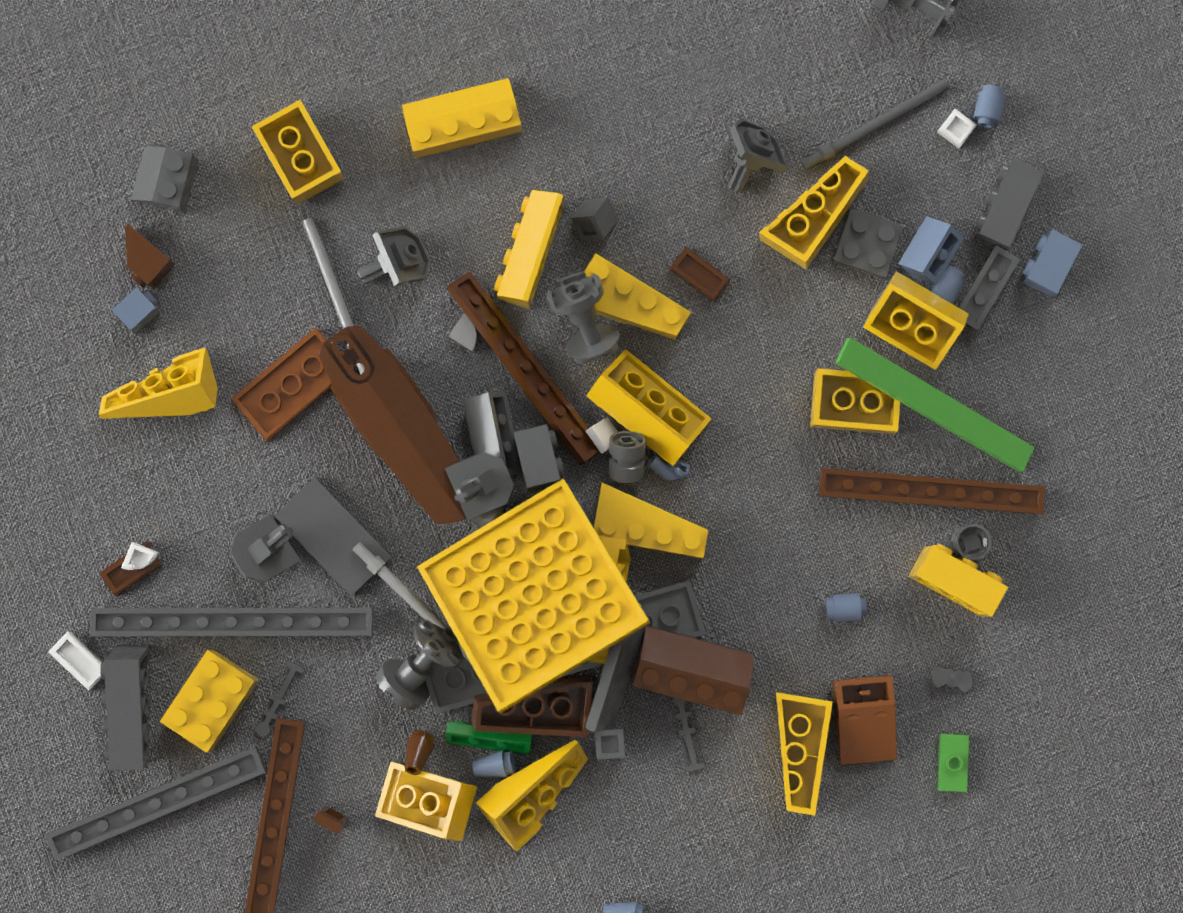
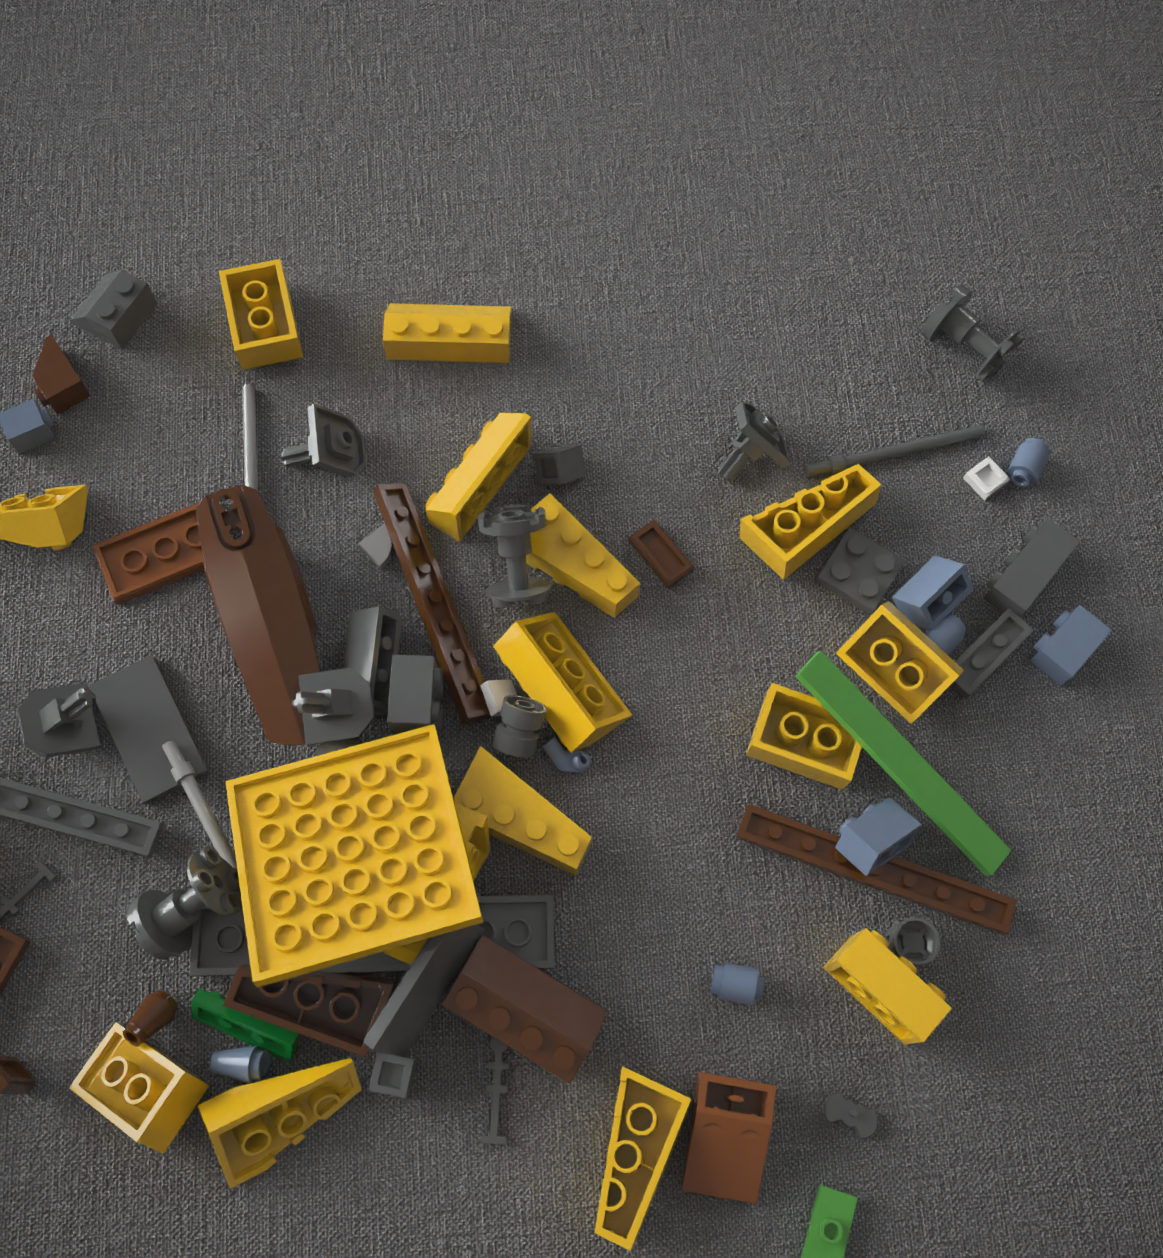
camera: 10 degrees right, 15 degrees down
(927, 467) = (877, 835): none -> sand blue brick

